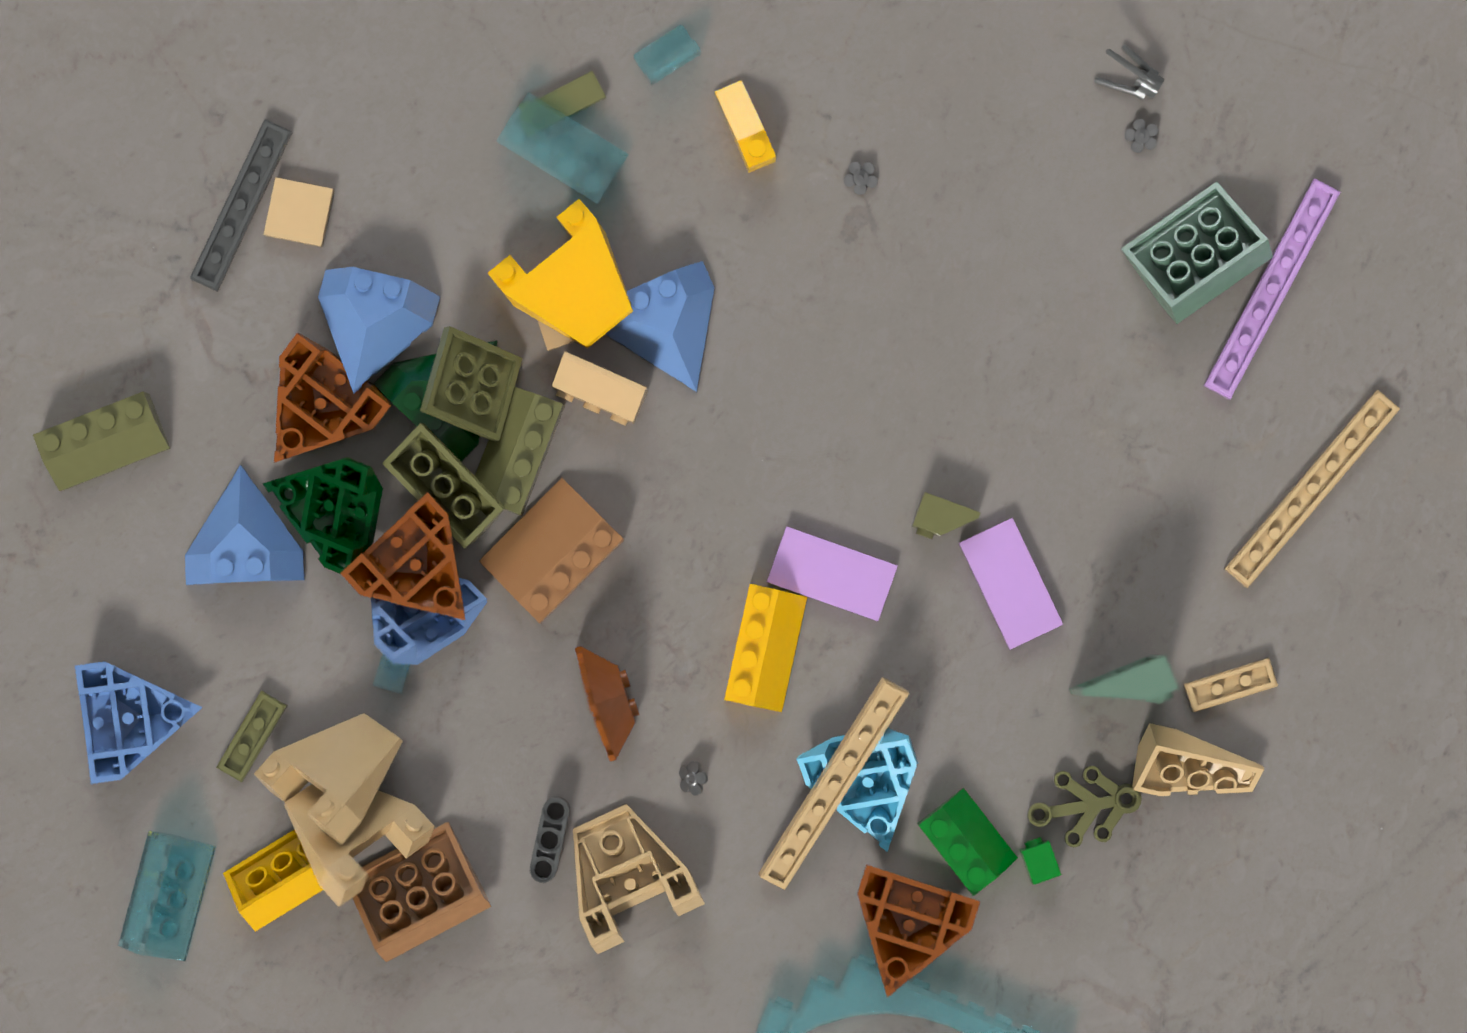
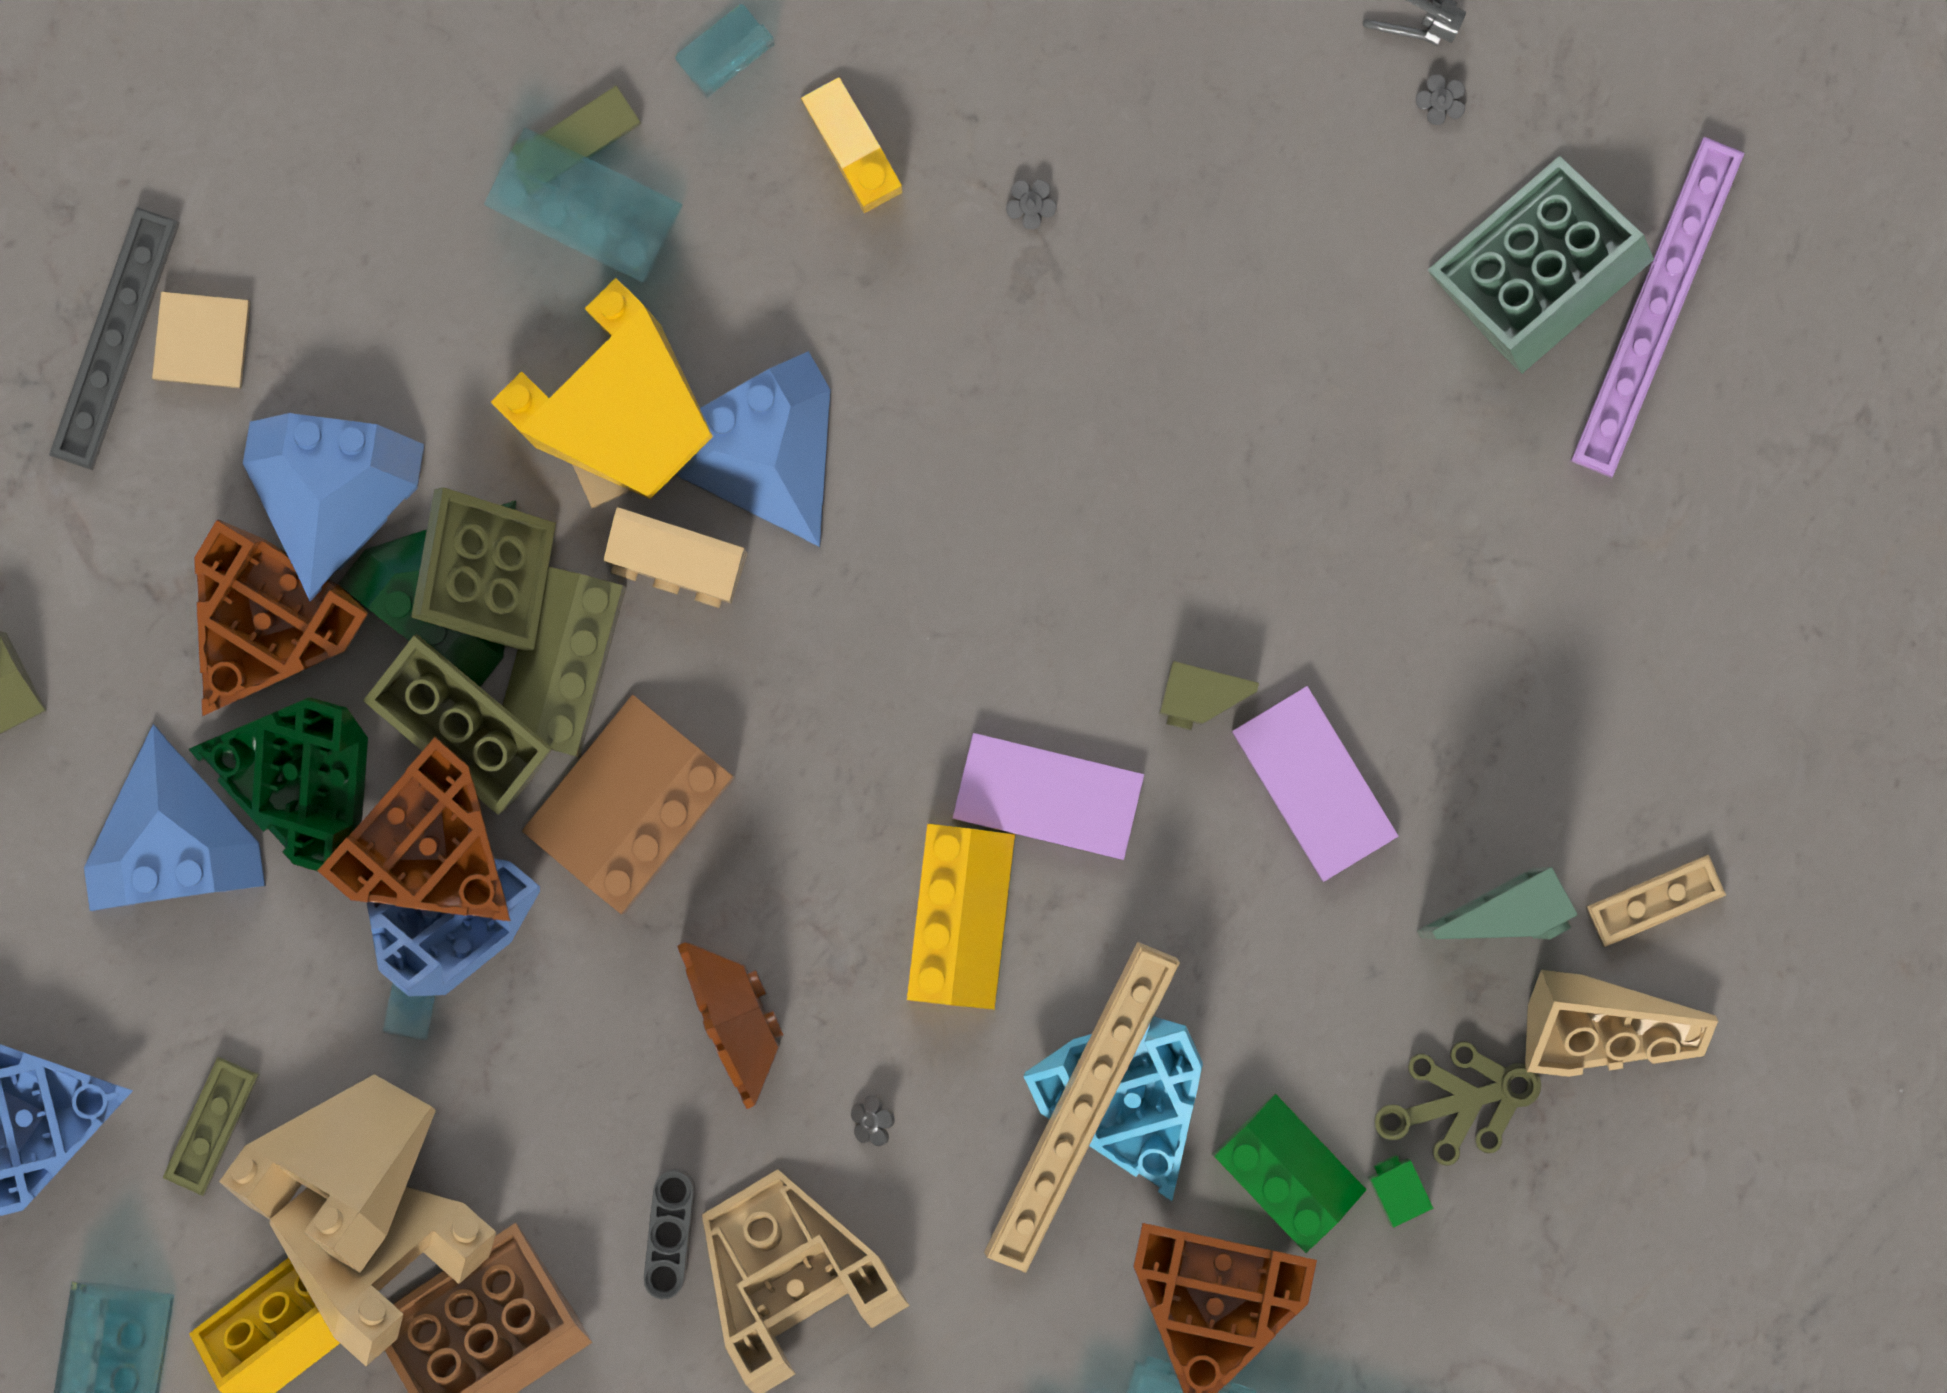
camera: 10 degrees left, 0 degrees up
(1312, 488) = (1747, 597): tan tile -> none

